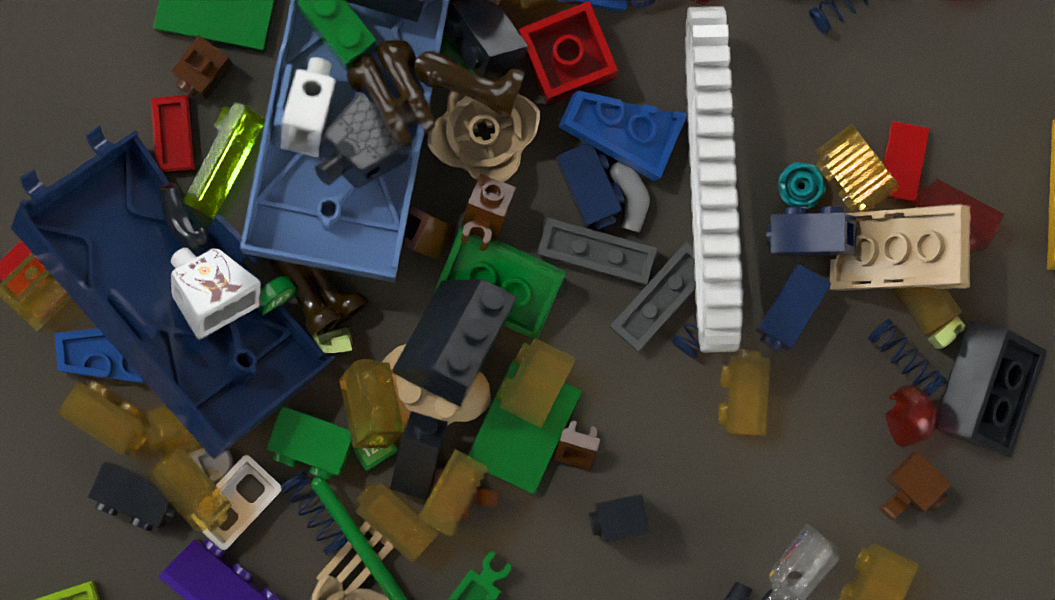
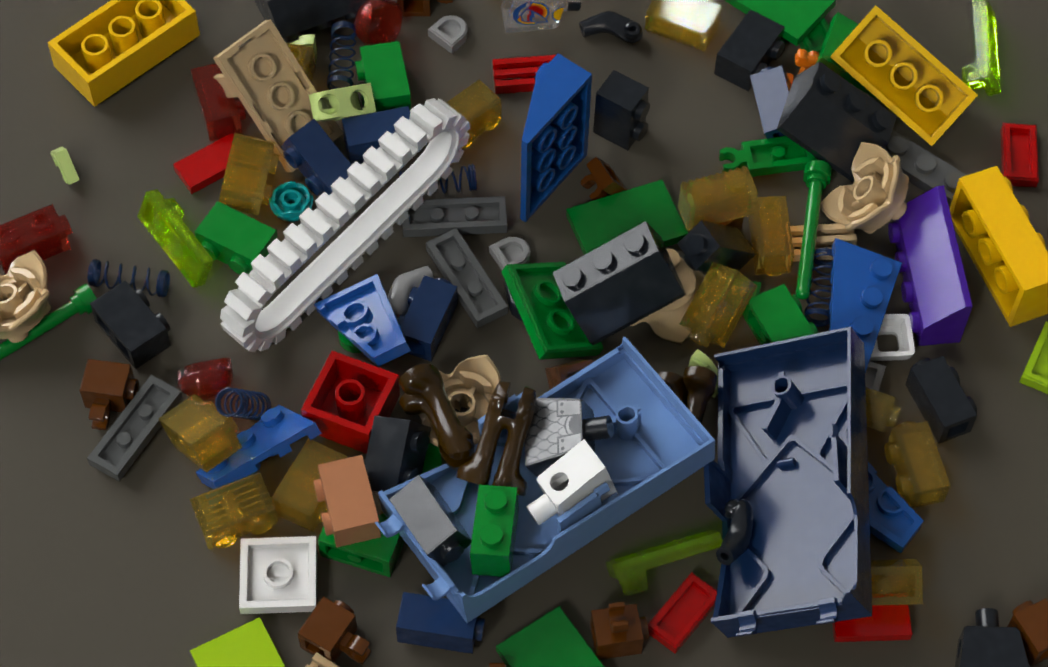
camera: 135 degrees left, 25 degrees down
(189, 490) = (898, 352): clear yellow brick -> none
(211, 289) = (761, 454): white torso -> none
(269, 521) = (860, 291): none -> blue wing
(275, 294) = (718, 421): green tile -> none
(487, 210) = (514, 351): reddish brown brick -> none
(536, 382) = (590, 224): clear yellow brick -> none
(586, 310) = (510, 251): none -> light grey tile
(641, 420) = (554, 130): none -> blue slope
(765, 470) = (519, 67): none -> red tile
(804, 107) = (234, 237): none -> green brick
(846, 297) = (341, 103): none -> yellowish green leg
(847, 367) = (386, 71): none -> green brick
(849, 475) = (449, 32): none -> light grey tile
(884, 71) = (165, 224): none -> clear neon green hinge
(1012, 44) = (63, 161): none -> yellowish green tile

